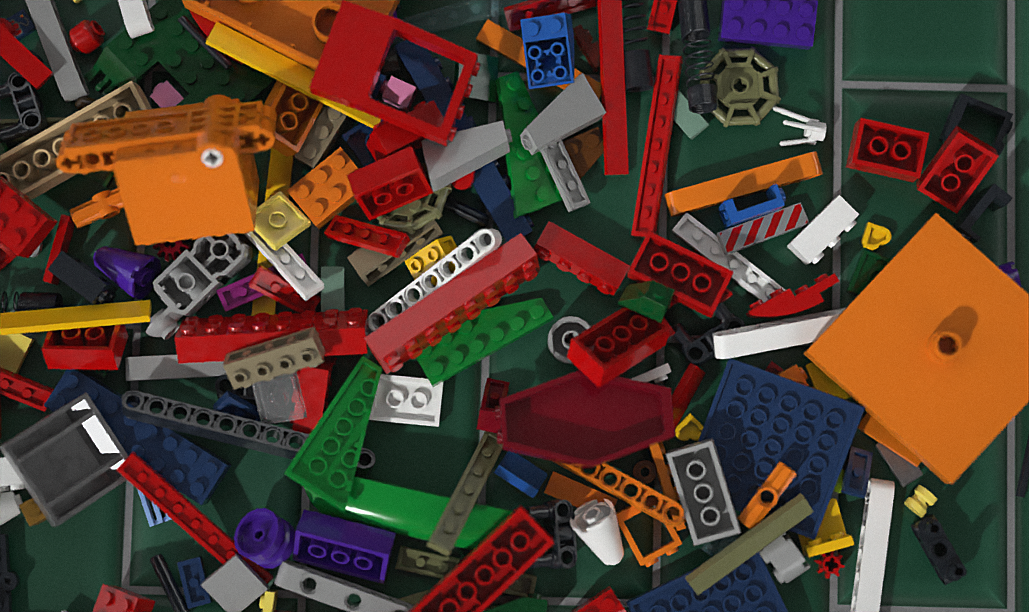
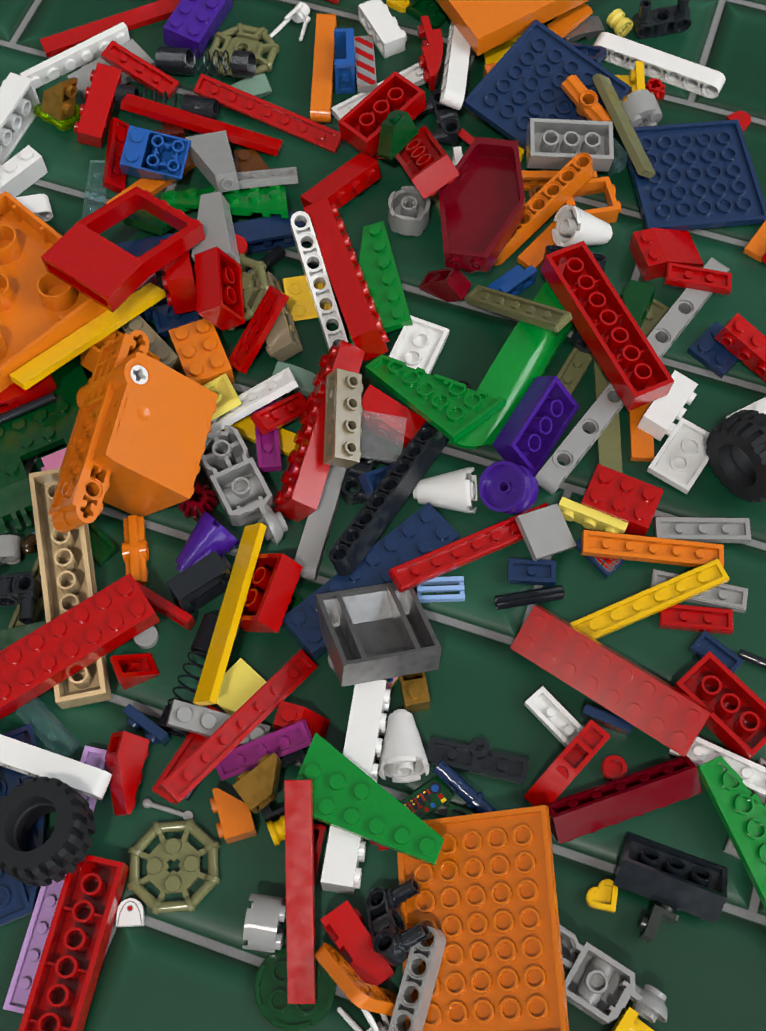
camera: 75 degrees left, 20 degrees down
(251, 482) = (449, 490): none -> white cone

